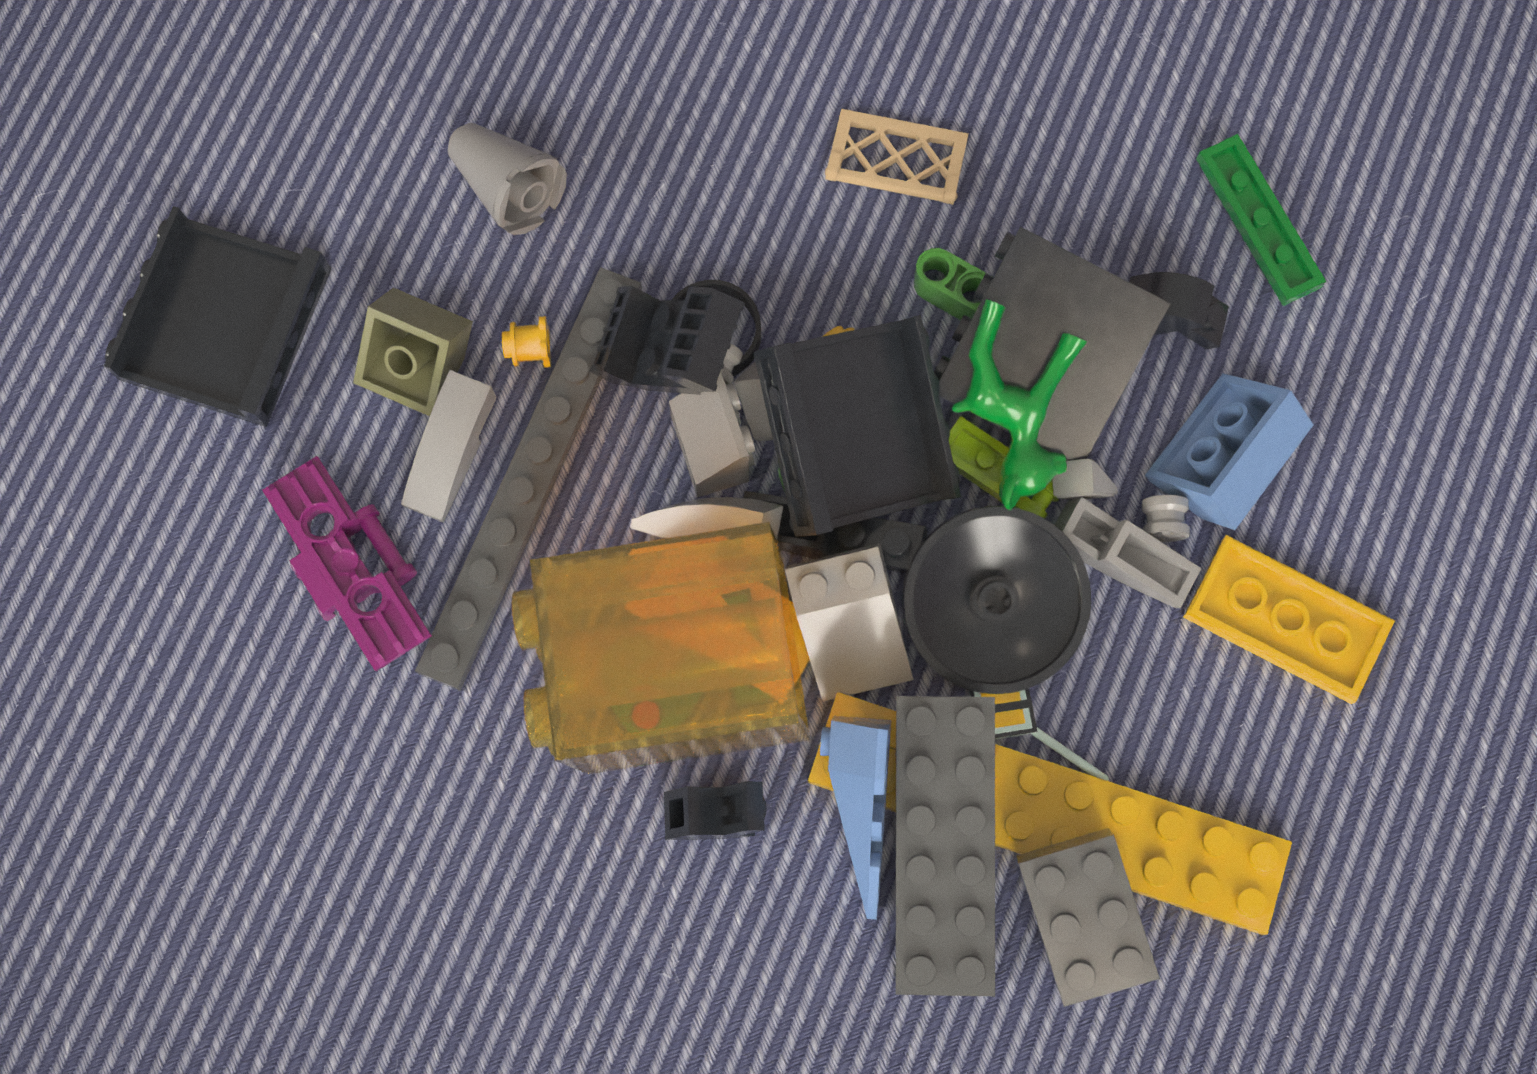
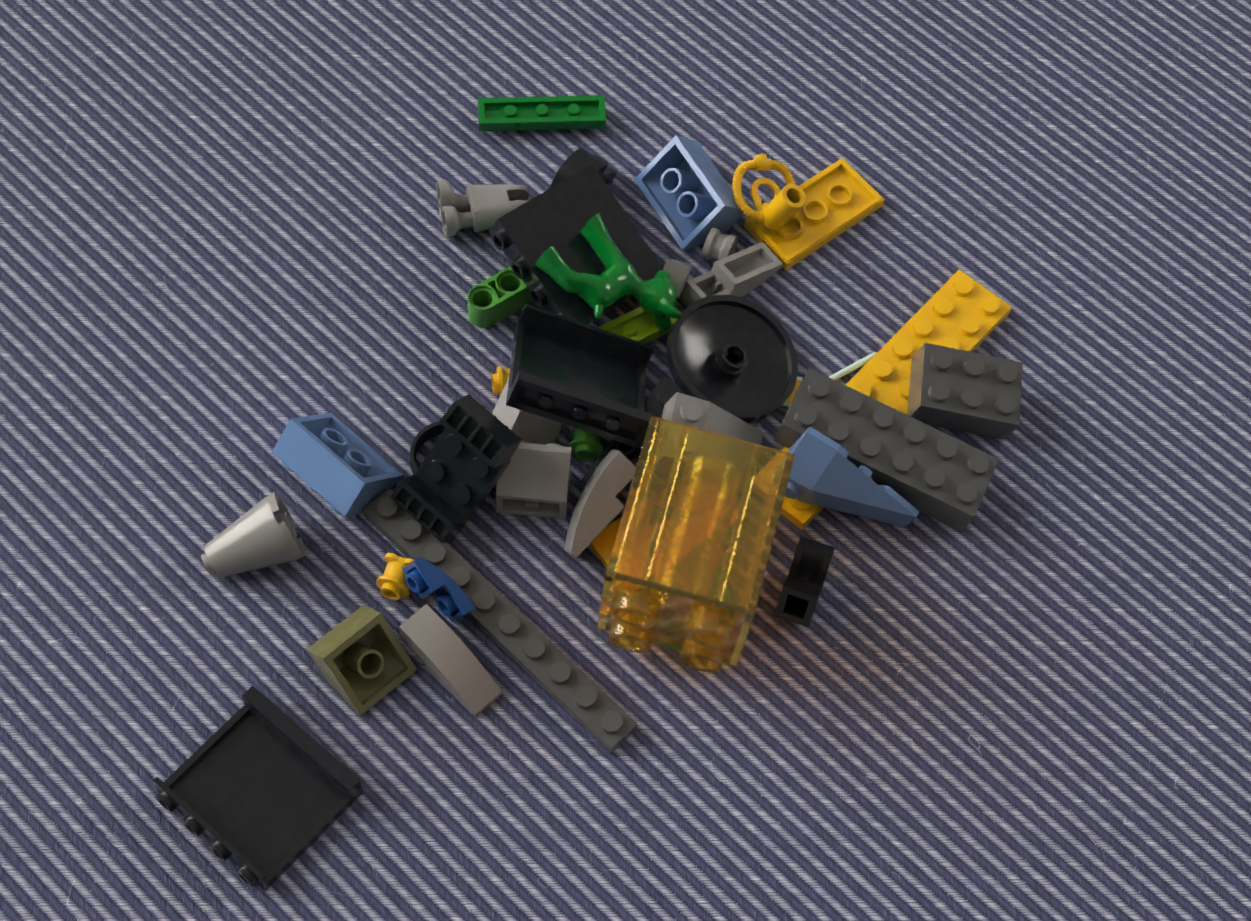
camera: 75 degrees left, 15 degrees down
(335, 570) = (508, 769): magenta piece -> none
(524, 380) = (426, 578): none -> blue slope
(646, 211) = (335, 462): none -> medium blue slope
(882, 126) = (372, 275): tan window -> none
(1081, 214) = (484, 203): none -> light grey piece
(1259, 574) = (785, 202): none -> yellow piece

